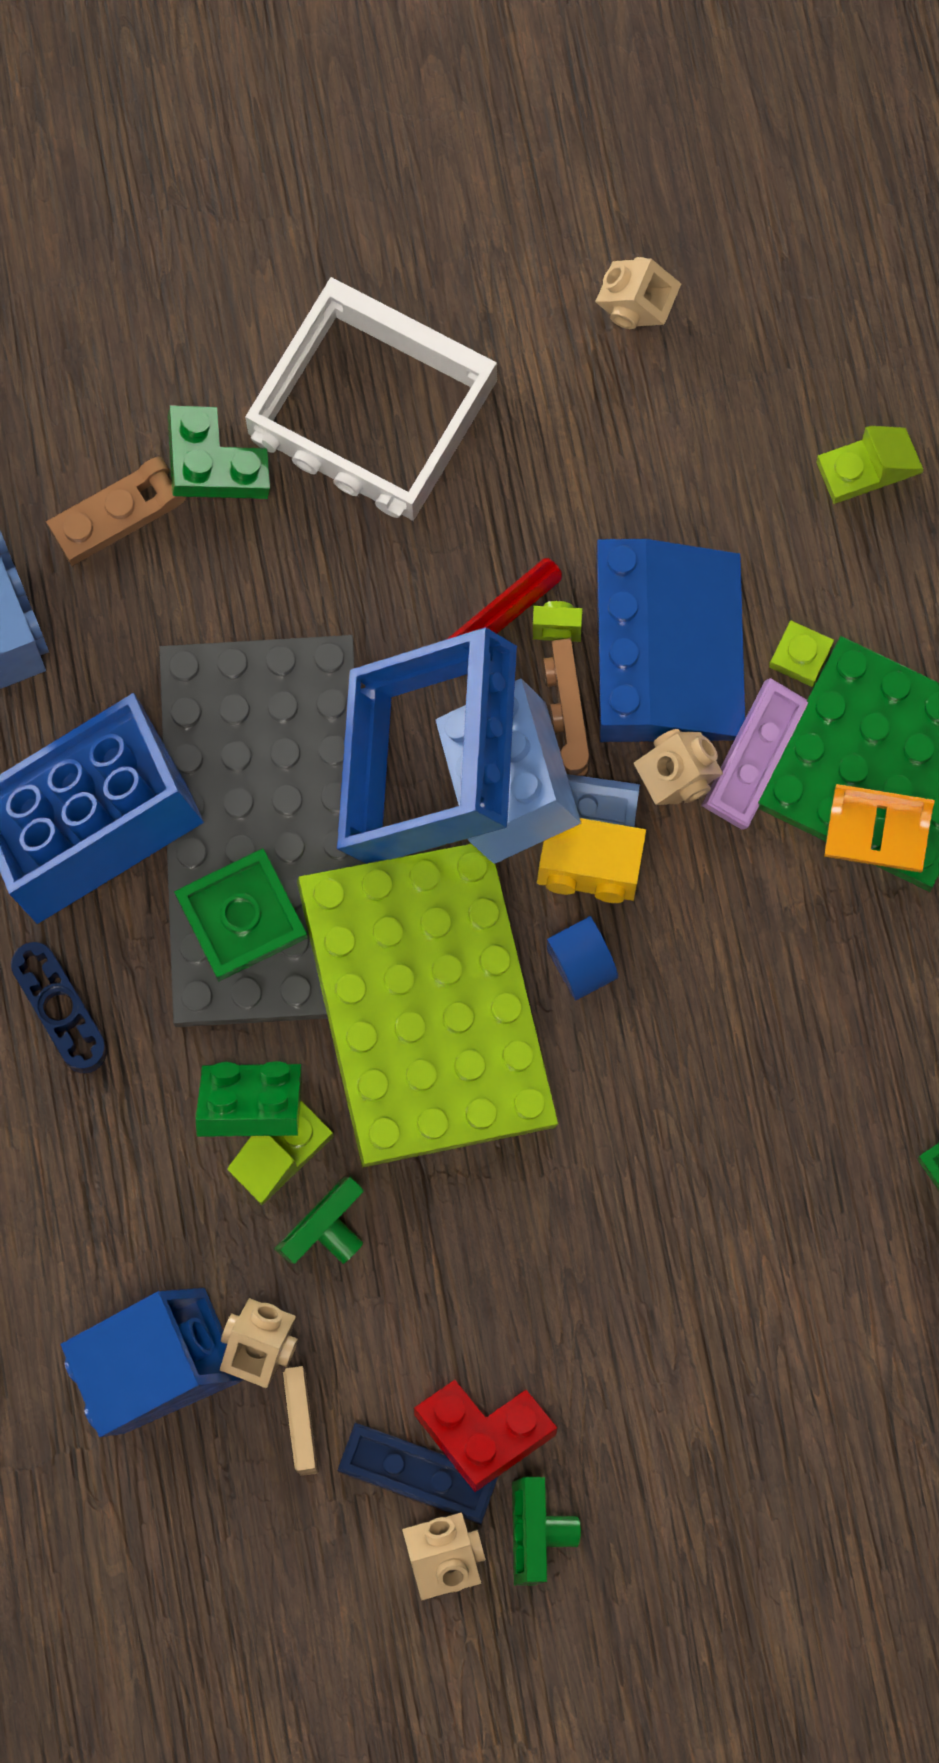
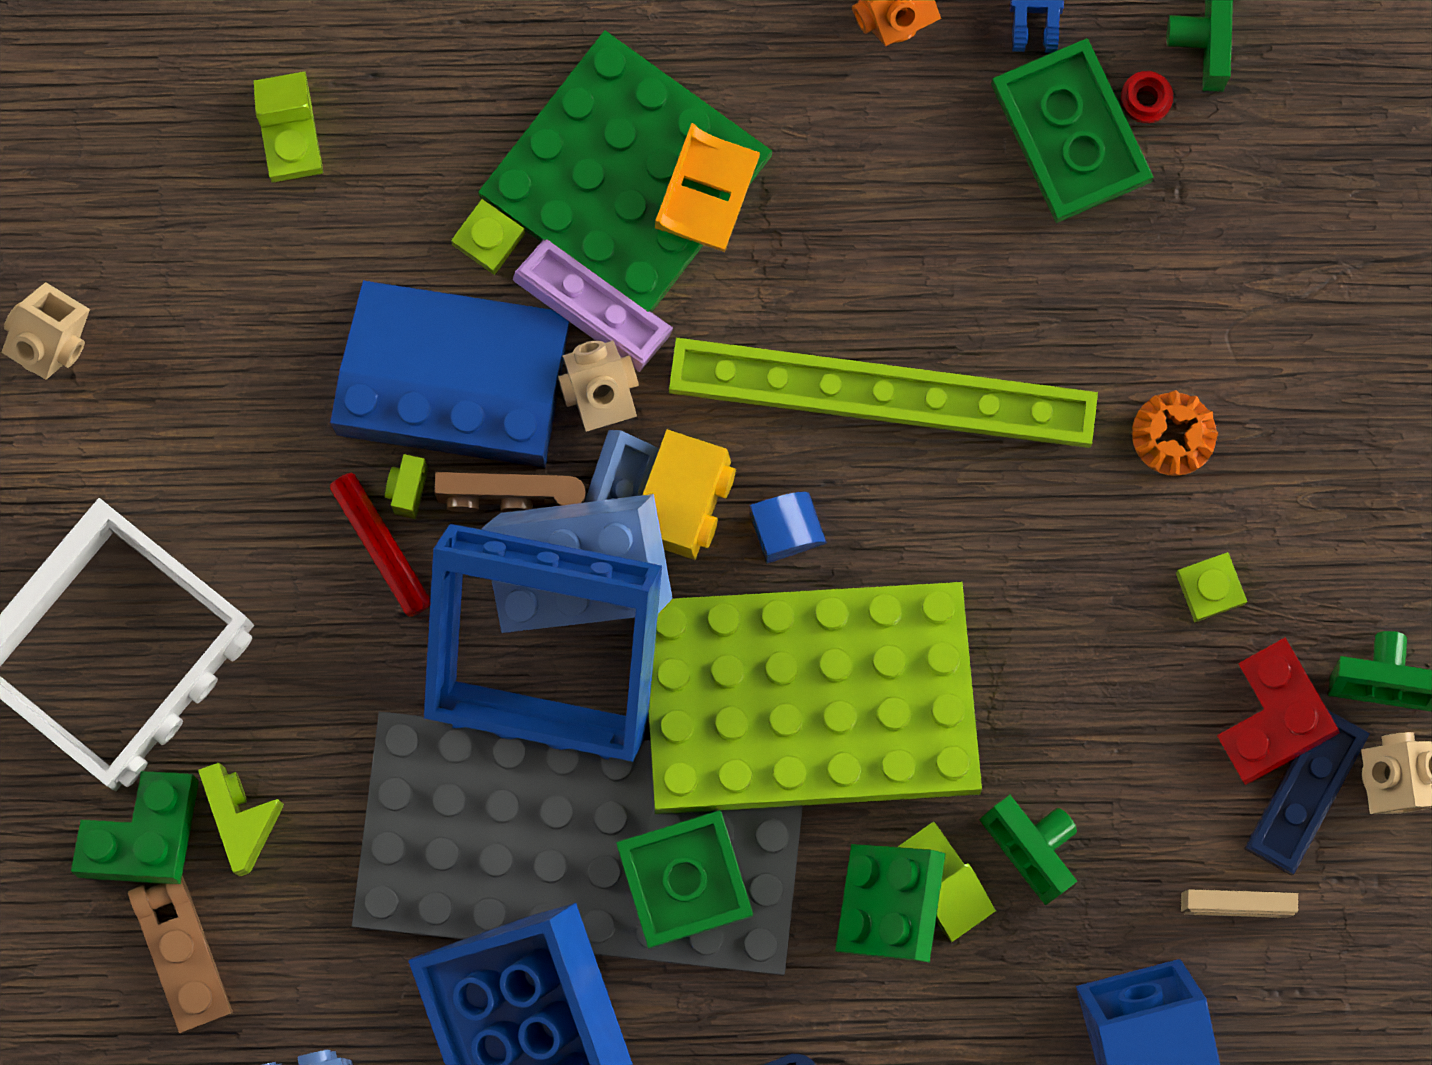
camera: 85 degrees left, 5 degrees up
(226, 536) = (243, 831): none -> lime slope
(258, 1342) = (1145, 926): tan brick -> none
(595, 1356) = (1211, 587): none -> lime plate
(722, 1027) = (883, 392): none -> lime plate
(734, 1324) = (1169, 456): none -> orange gear

